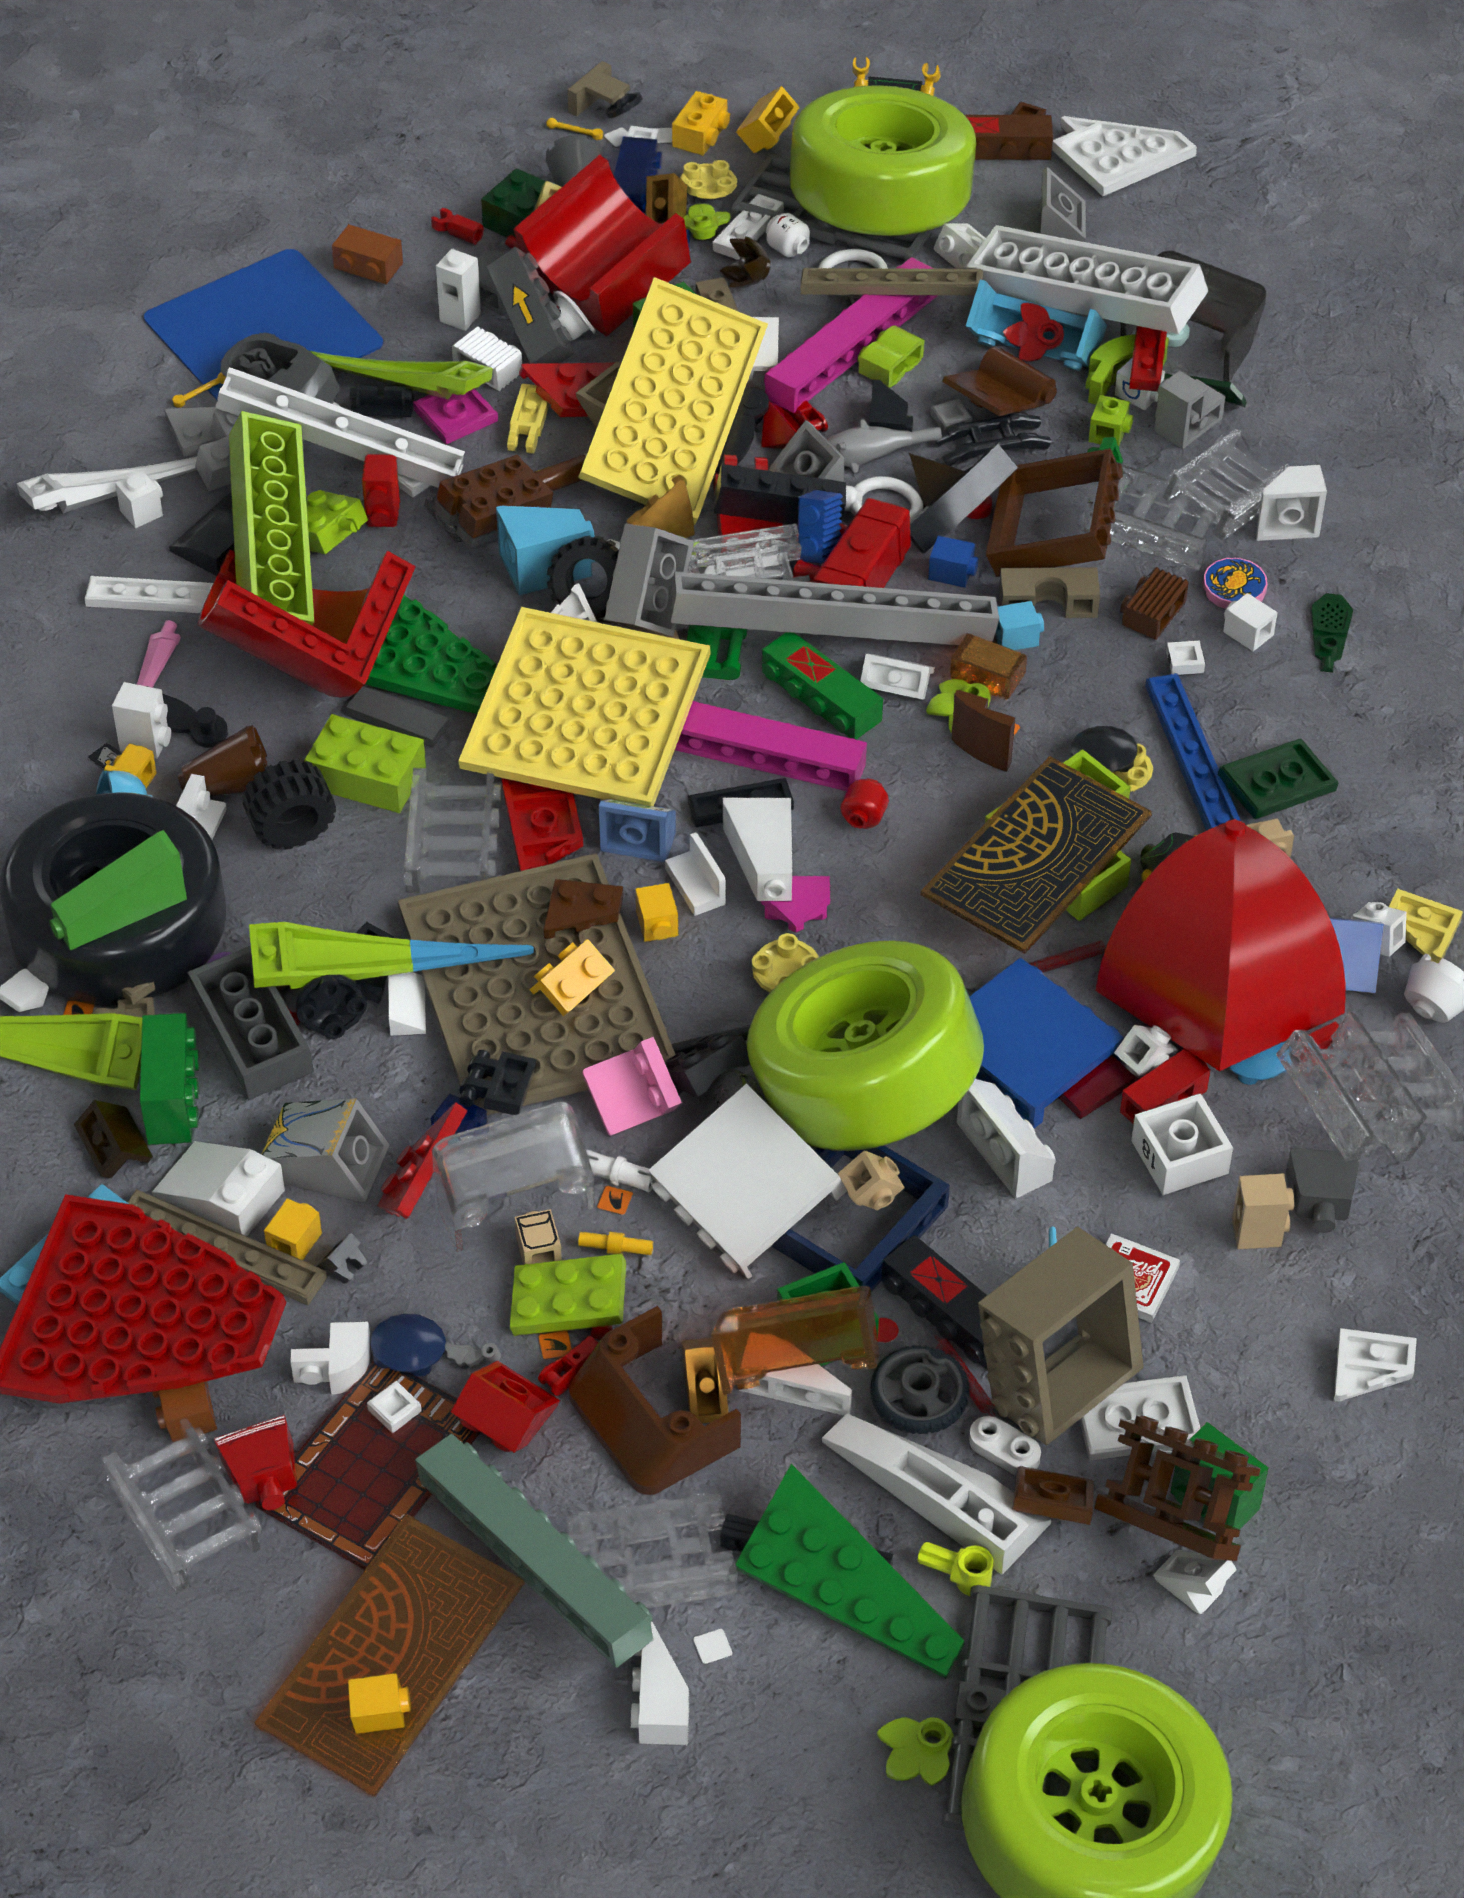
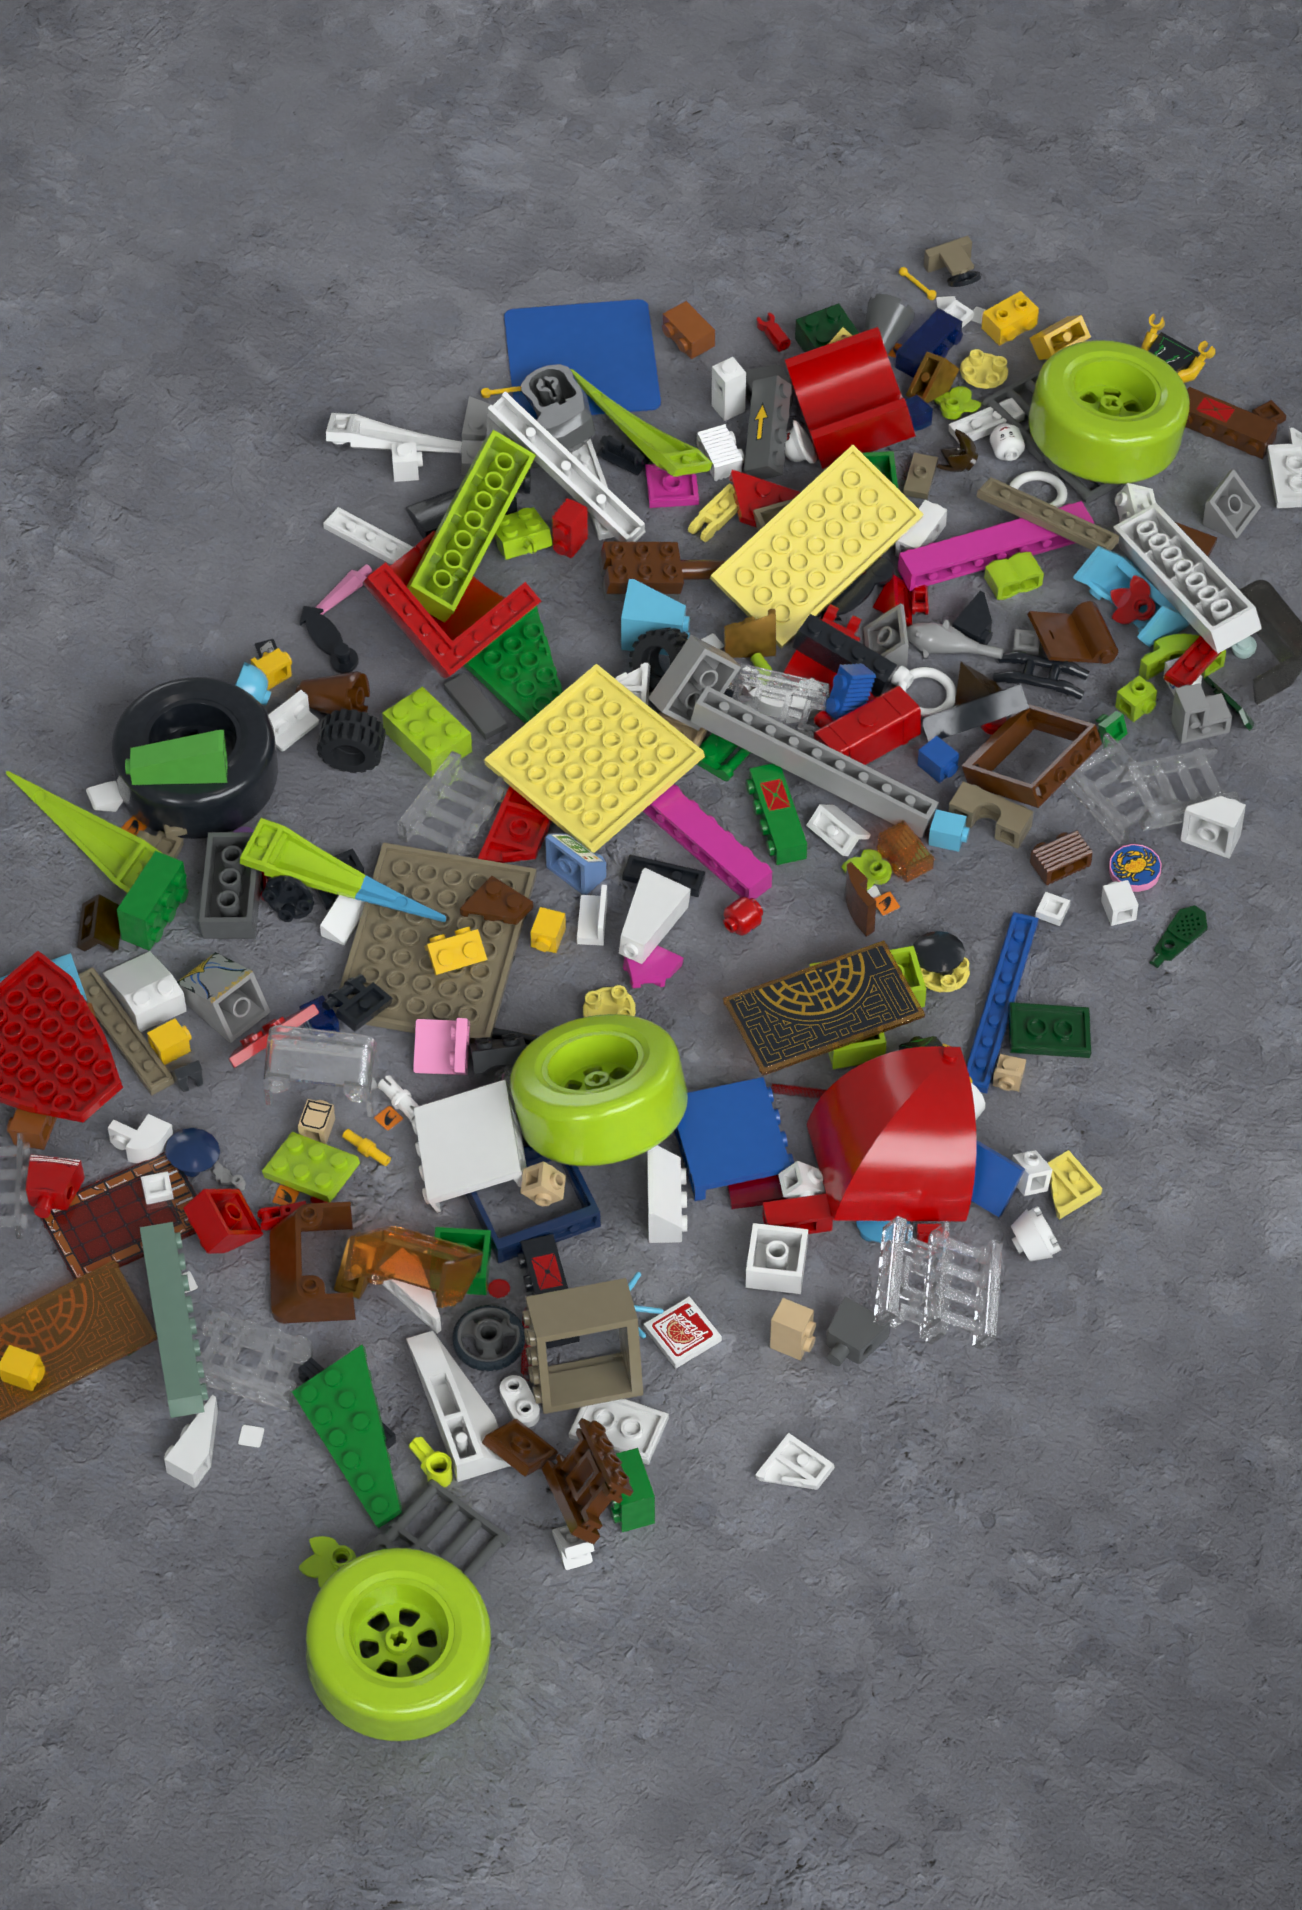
camera: 30 degrees right, 5 degrees up
(141, 718) = (296, 633): white brick -> none

